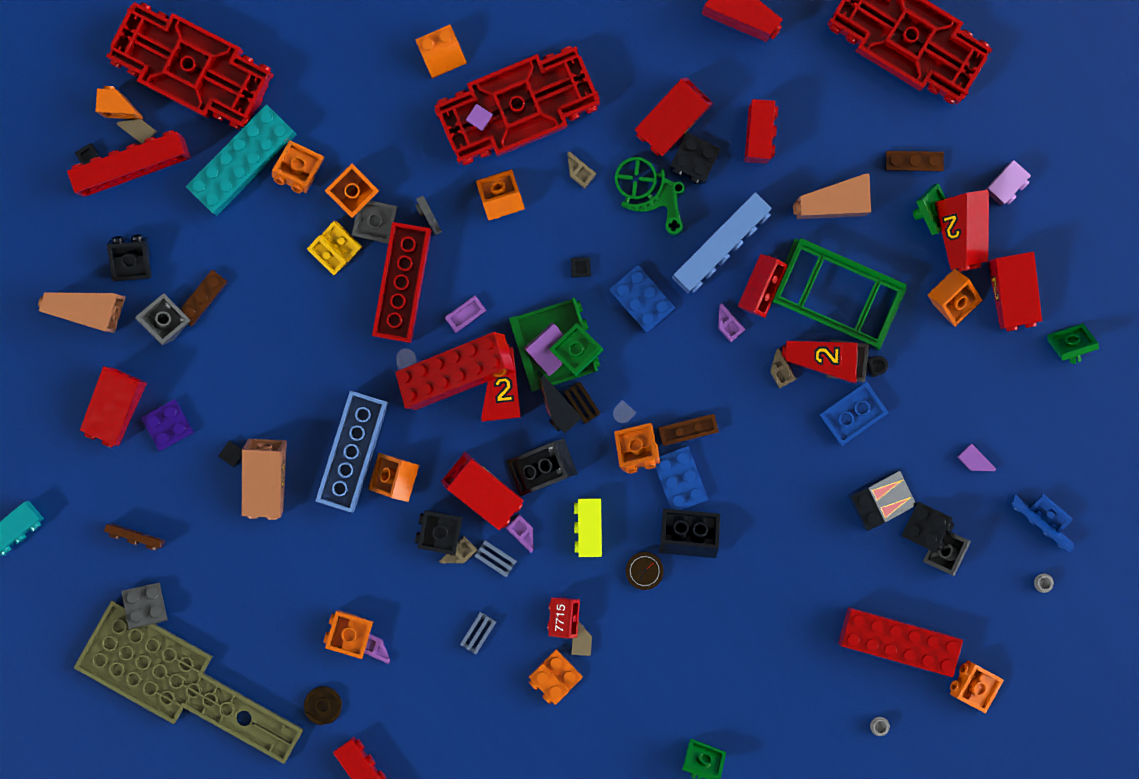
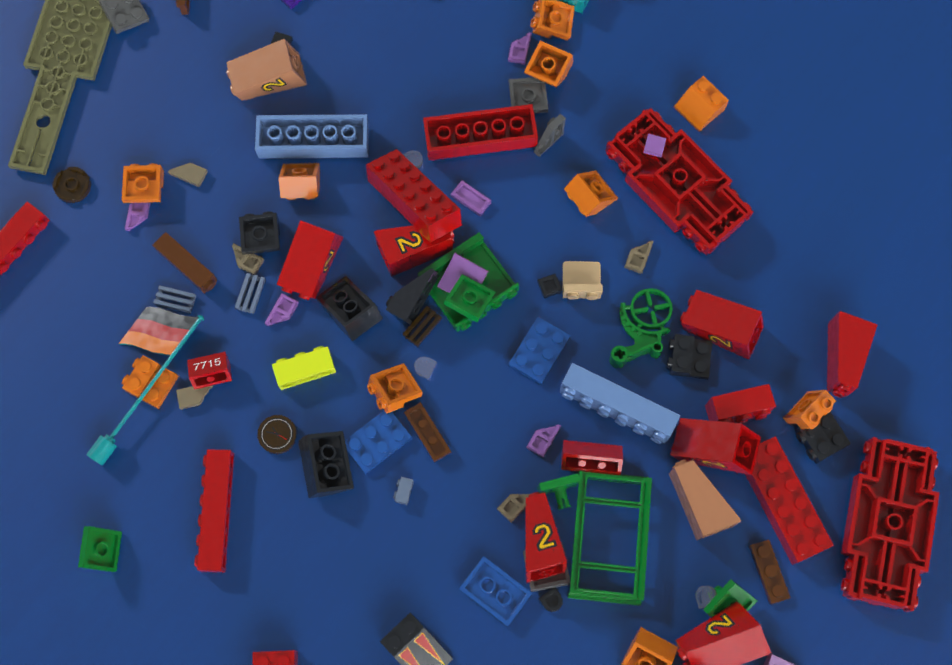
camera: 75 degrees right, 15 degrees down
(318, 212) = (519, 49): none -> medium lavender tile
(334, 248) = (492, 71): yellow slope -> none
(349, 584) = (190, 173): none -> dark tan tile
(445, 613) = (185, 263): none -> reddish brown brick
(511, 654) = (158, 333): none -> flag
(586, 235) = (582, 280): none -> tan bracket
(699, 646) = (215, 511): none -> red brick
(736, 468) = (404, 490): none -> sand blue piece
(781, 325) = (559, 487): none -> green tile
(783, 68) = (810, 409): none -> orange plate
(790, 168) = (716, 445): none -> red slope
(809, 65) = (823, 439): none -> black plate
(857, 124) = (787, 504): none -> red brick
(918, 227) = (704, 595): none -> clear tile

